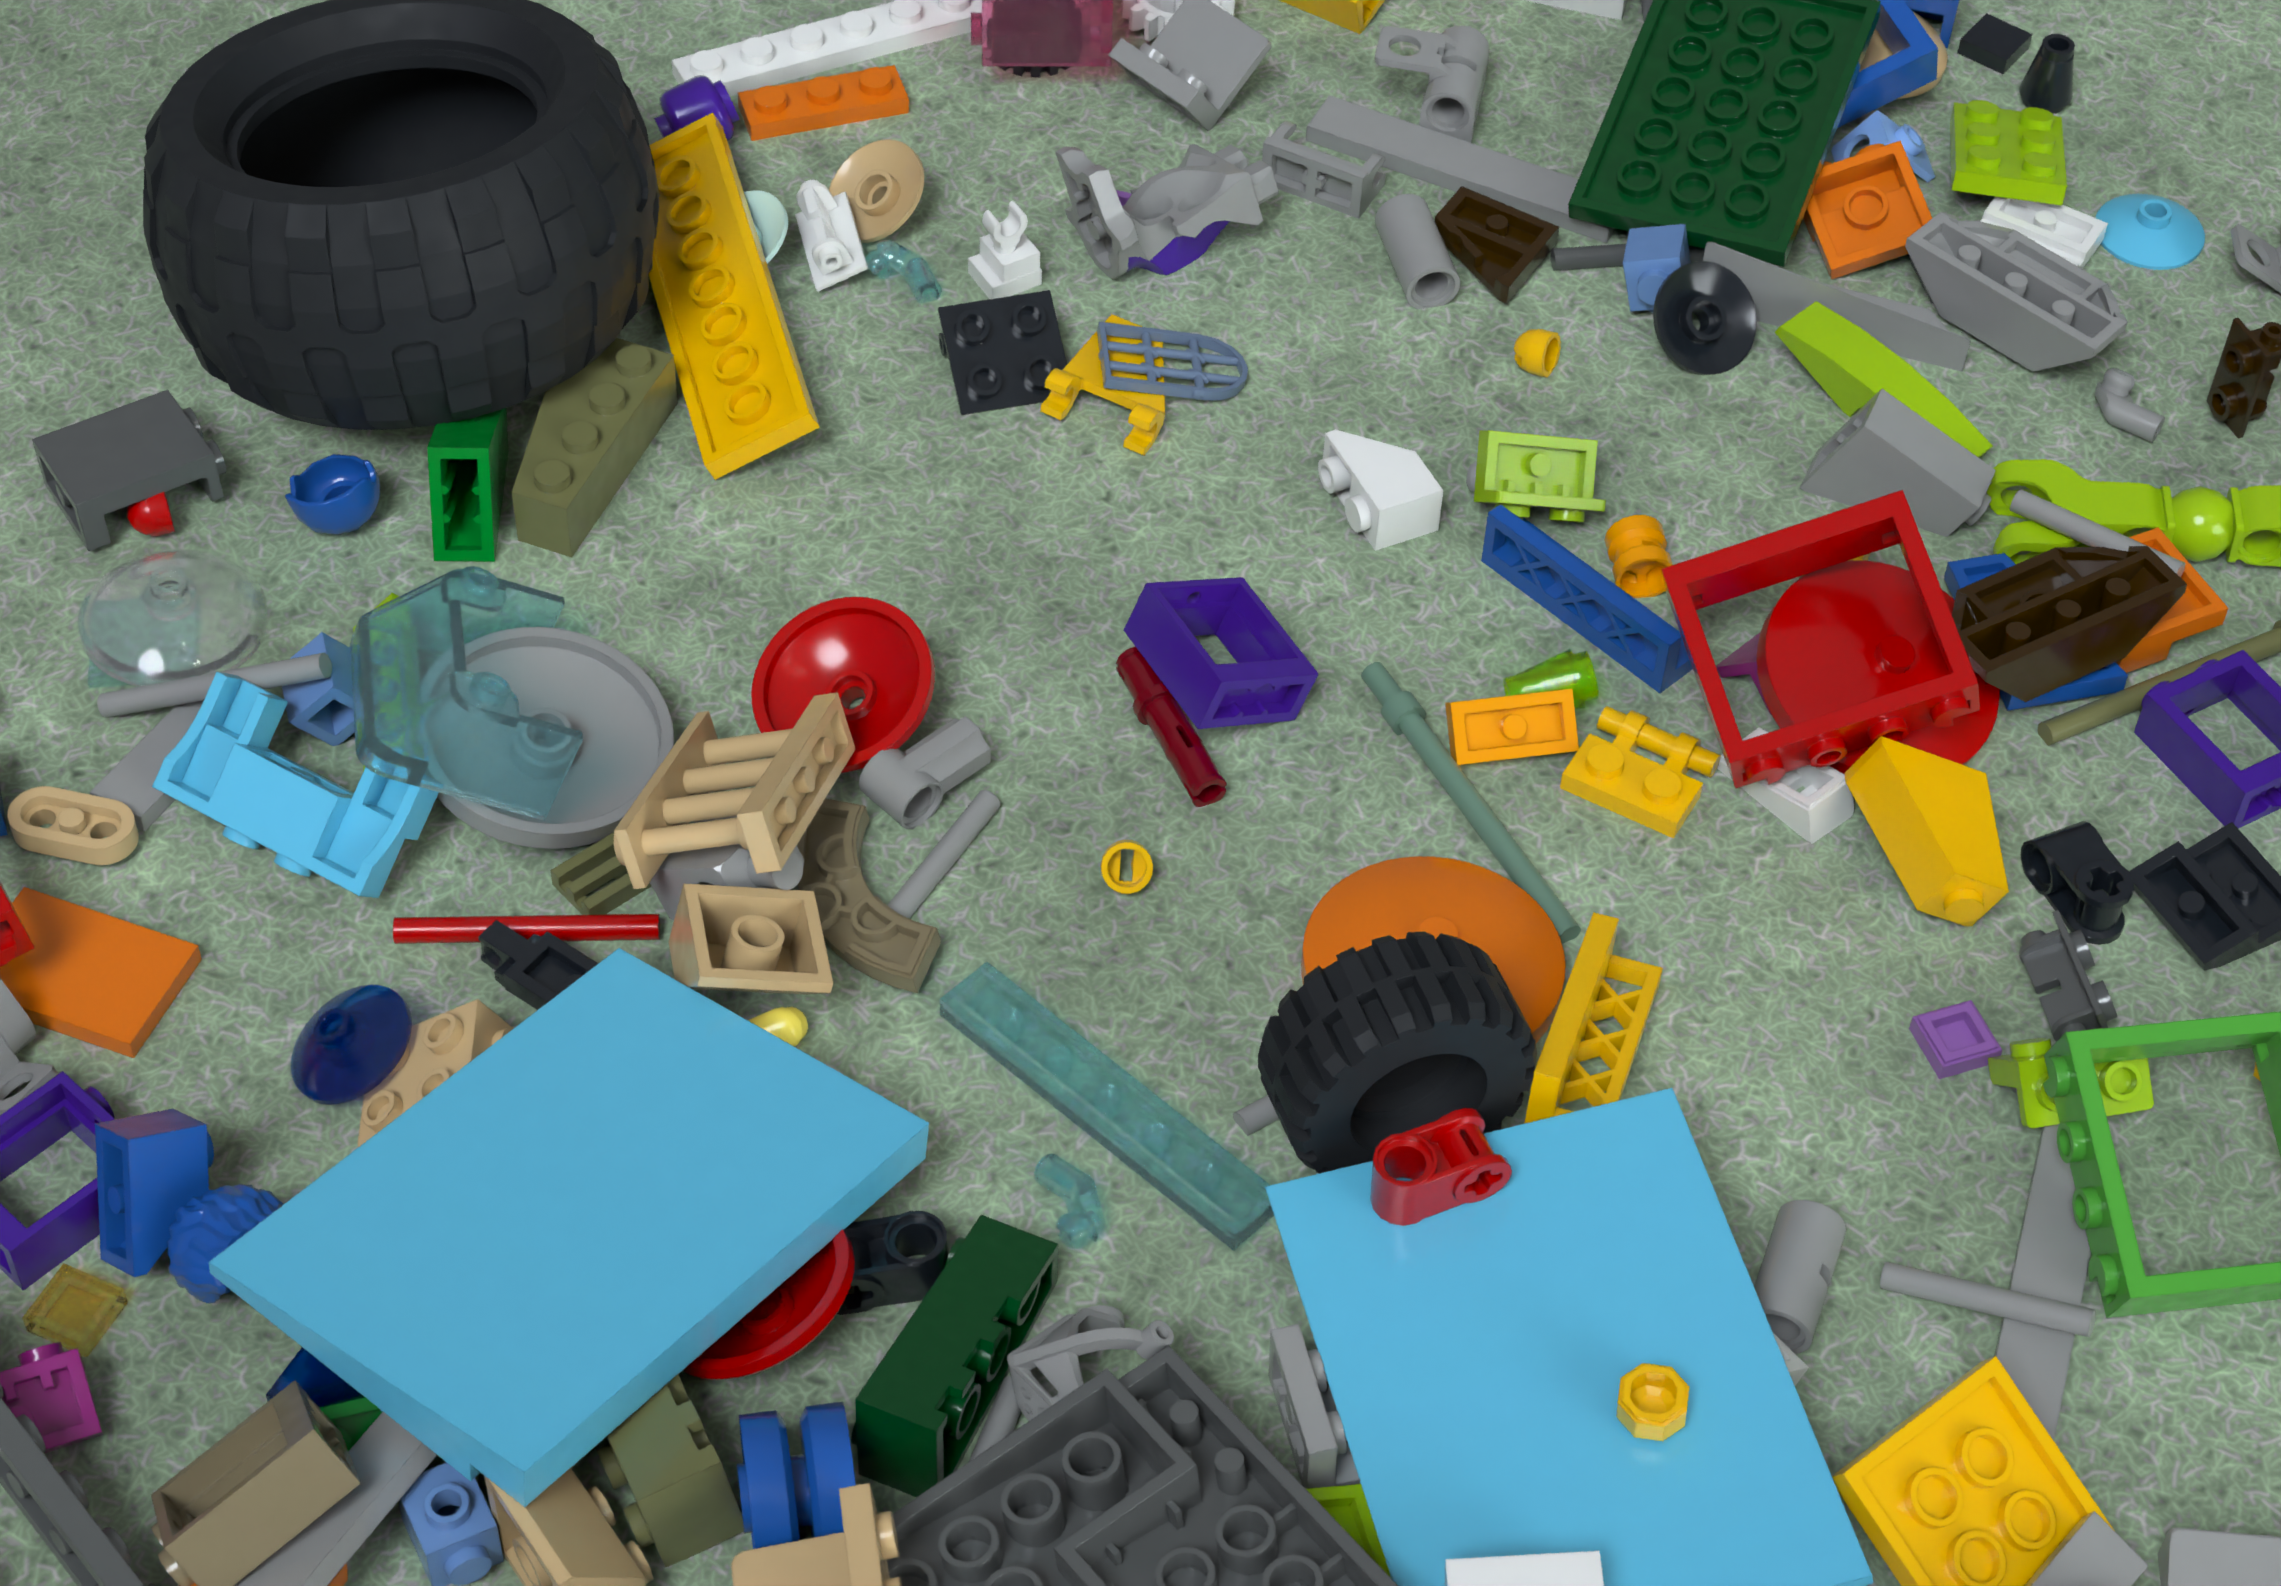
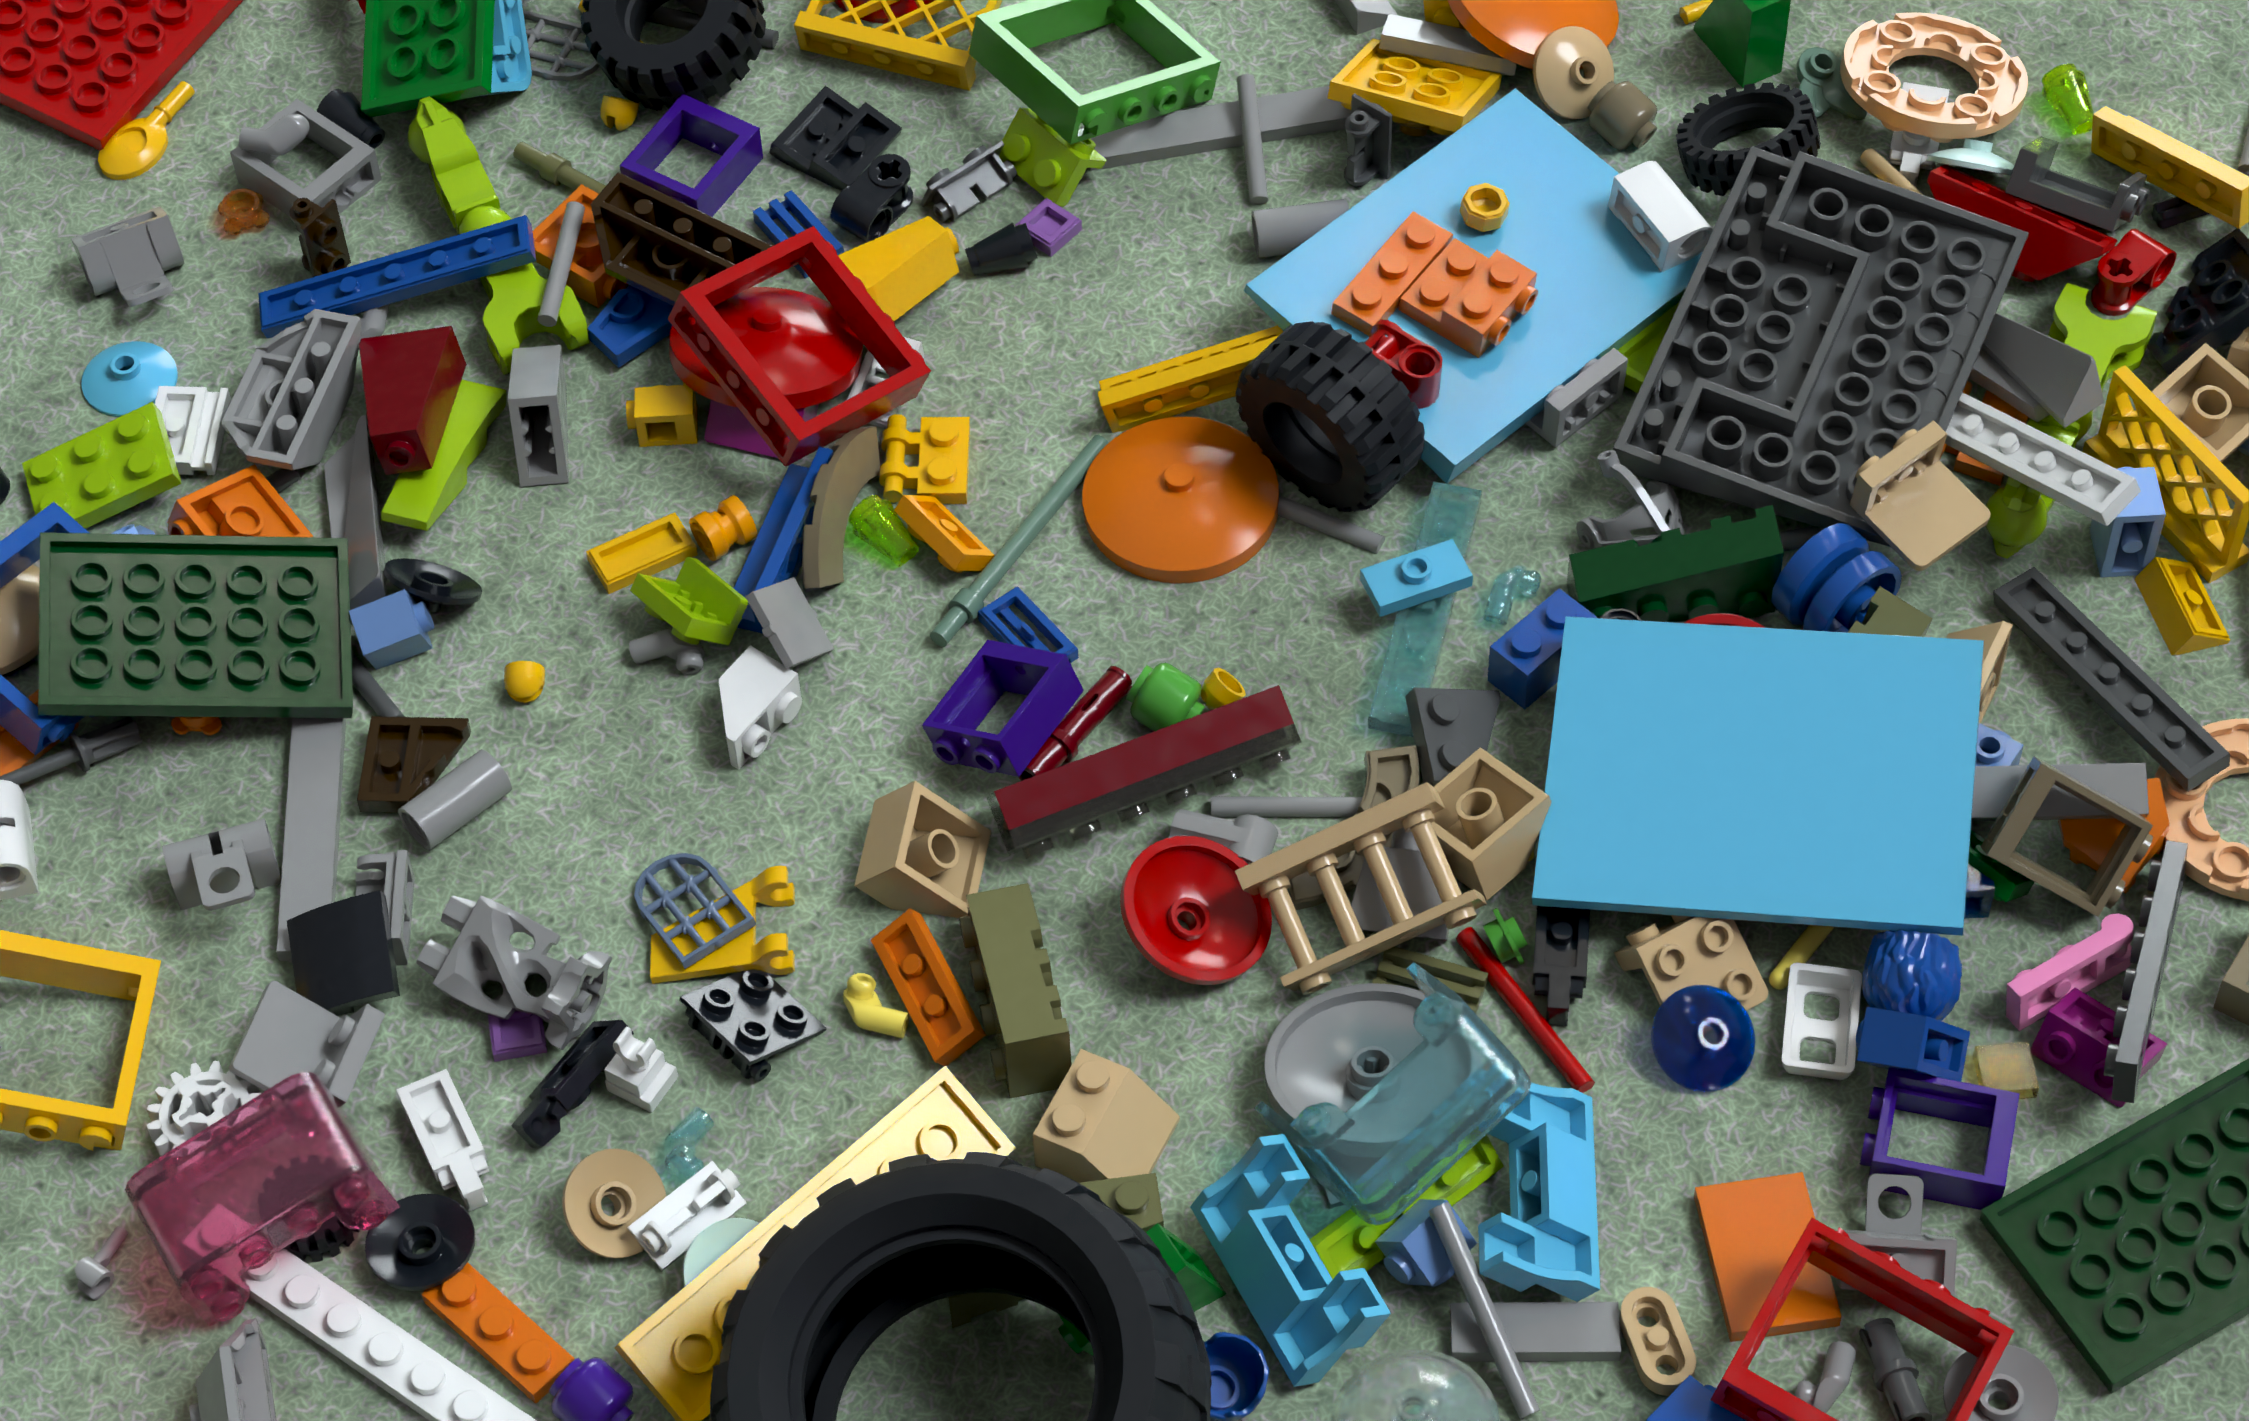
camera: 115 degrees left, 5 degrees up
(120, 1436) = (2074, 966): none -> bright pink plate
(264, 1118) = (1826, 981): none -> white piece
(373, 562) = (1277, 1269): none -> medium azure bracket
(615, 928) = (1505, 937): none -> bright green plate
(669, 530) = (1102, 1123): none -> tan slope
(866, 524) = (1019, 990): none -> olive wedge
(910, 1030) = (1449, 726): none -> dark grey wing
(934, 481) = (928, 987): none -> orange plate
(940, 73) = (417, 1224): none -> black dish
(949, 440) = (868, 1011): none -> light yellow arm
(960, 1164) = (1528, 656): none -> blue brick
(1037, 127) = (446, 1136): none -> white hinge
(1045, 226) = (568, 1083): none -> black hinge
(1056, 741) = (1144, 771): none -> brick
(1091, 537) = (922, 853): none -> tan slope
(1139, 1089) = (1416, 577): none -> medium azure plate
(1144, 803) = (1164, 697): none -> bright green head
(1276, 115) = (344, 953): none -> black slope
(1332, 759) = (997, 628): none -> blue tile
(1451, 529) = (789, 622): none -> light grey piece
(1510, 1313) = (1470, 296): none -> orange plate
(1600, 1248) = (1390, 273): none -> orange plate
(1611, 633) = (834, 492): none -> dark tan tile
(1659, 489) = (641, 551): none -> yellow tile
(1893, 1384) = (1367, 142): none -> dark grey hinge
(1929, 968) = (1002, 250): none -> black cone
(1957, 356) = (410, 394): none -> dark red slope
(2069, 795) = (781, 210): none -> blue tile
(2162, 427) = (401, 275): none -> blue tile

